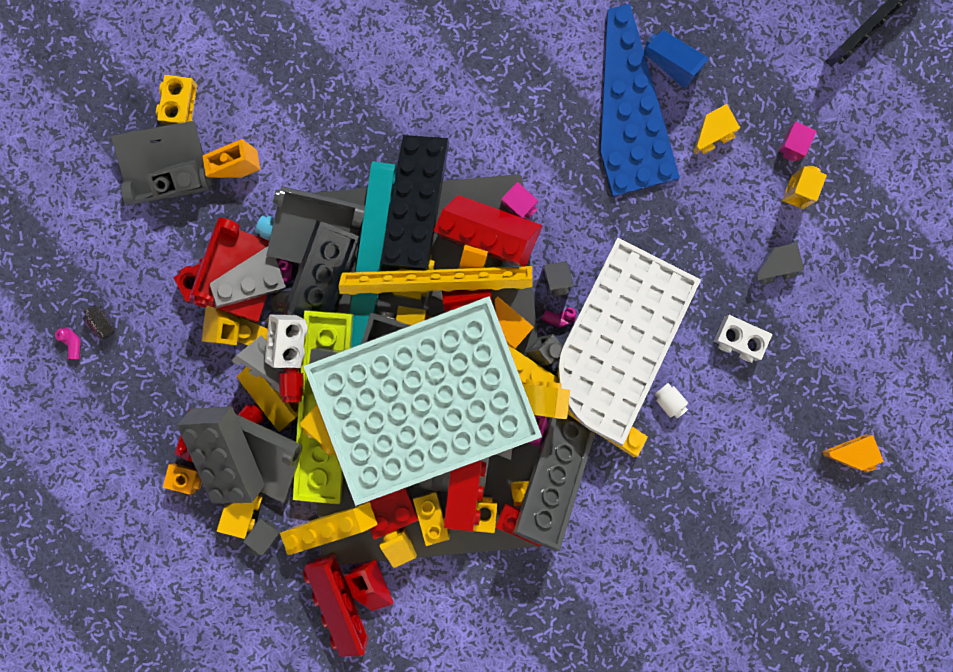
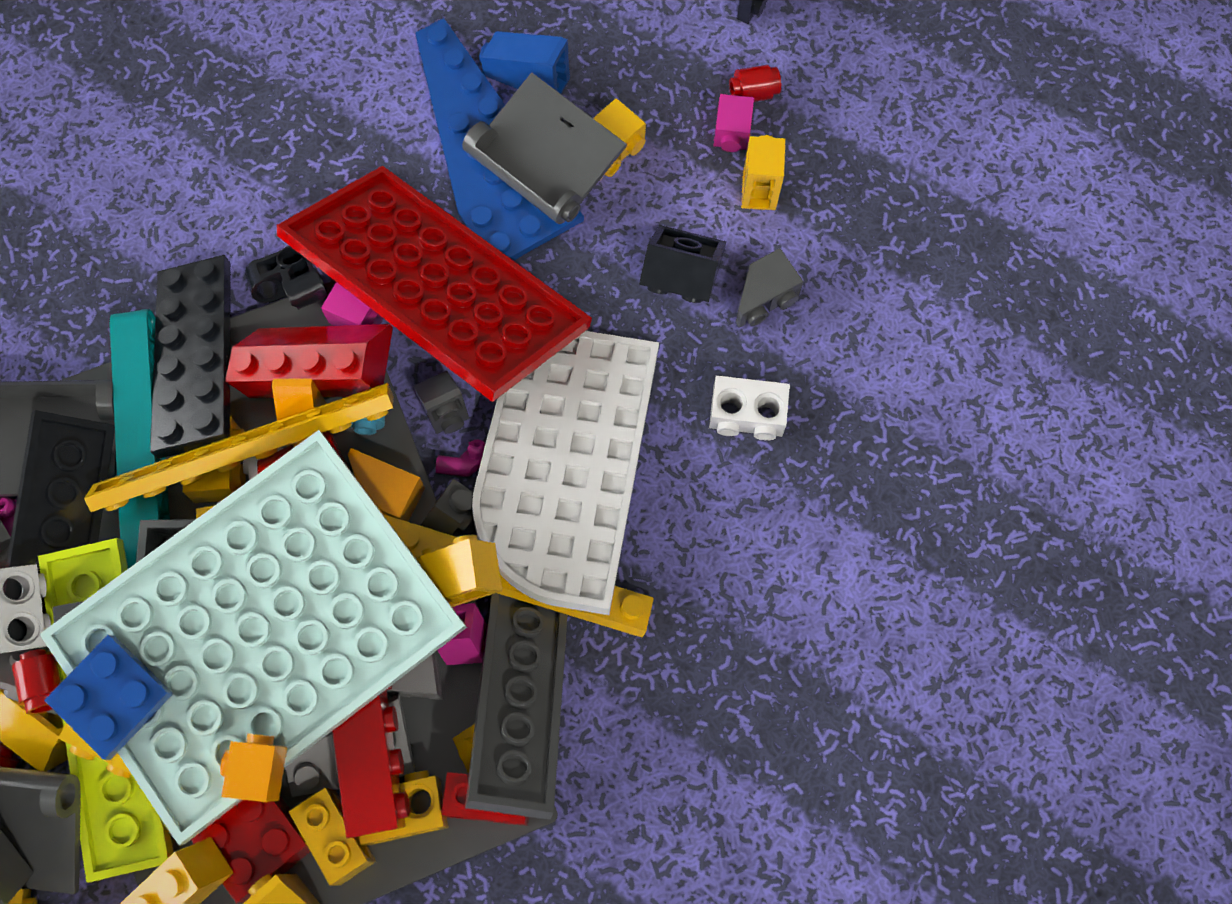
camera: 20 degrees left, 15 degrees down
(335, 415) = (108, 697): none -> blue plate
(407, 481) = (253, 769): none -> light orange brick
(483, 163) = (285, 275): none -> black piece
(575, 199) = (435, 281): none -> red plate
(667, 131) = (539, 154): none -> dark grey door
(671, 401) = (672, 531): white brick -> none
(733, 230) = (682, 264): none -> black slope
(821, 116) = (756, 82): none -> red brick
(857, 453) = (982, 524): light orange slope -> none

